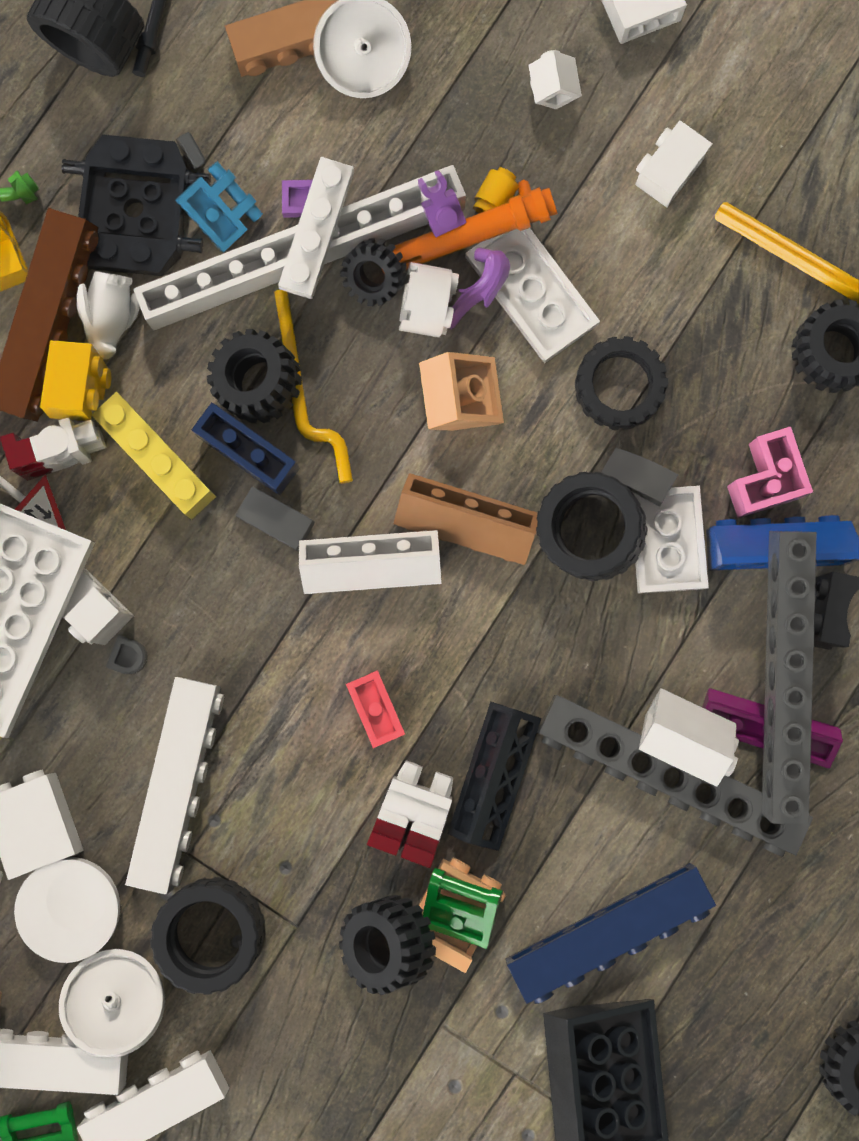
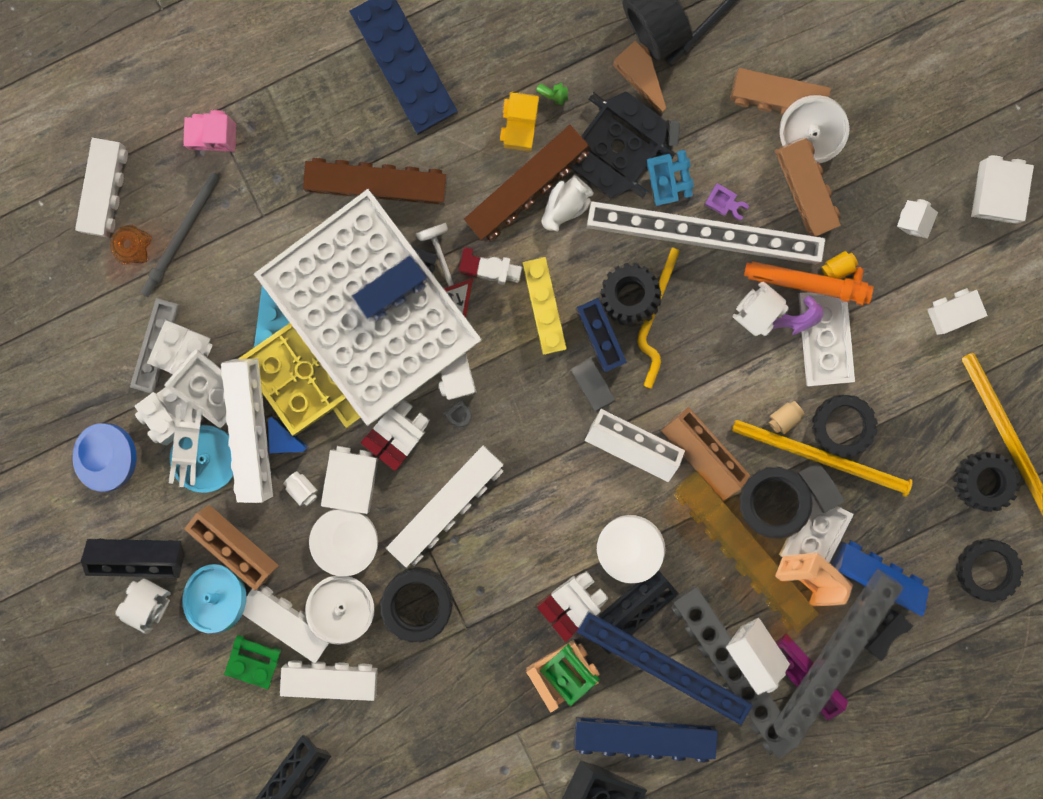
camera: 30 degrees right, 5 degrees up
(58, 731) = (401, 429): none -> white hips
(73, 381) = (524, 236): yellow brick -> none
(104, 102) = (639, 71): none -> medium nougat slope
(316, 228) = (721, 230): white plate -> none
(367, 951) = (531, 674): black tyre -> none
(375, 709) = (586, 531): coral plate -> none
(386, 260) = (747, 265): black tyre -> none
(395, 117) = (808, 187): none -> medium nougat brick
(442, 207) = (802, 261): medium lavender plate -> none
(445, 697) = (631, 549): none -> white piece
(461, 391) = (747, 375): light nougat slope -> none
(542, 415) = (786, 417): none -> tan brick
(578, 824) = (664, 668): none -> dark blue tile
(593, 613) = (745, 550): none -> clear yellow brick
(617, 438) = (822, 457): none -> yellow axle
(703, 588) = (824, 581): none -> light nougat panel
(779, 476) = (903, 537): bright pink brick -> none

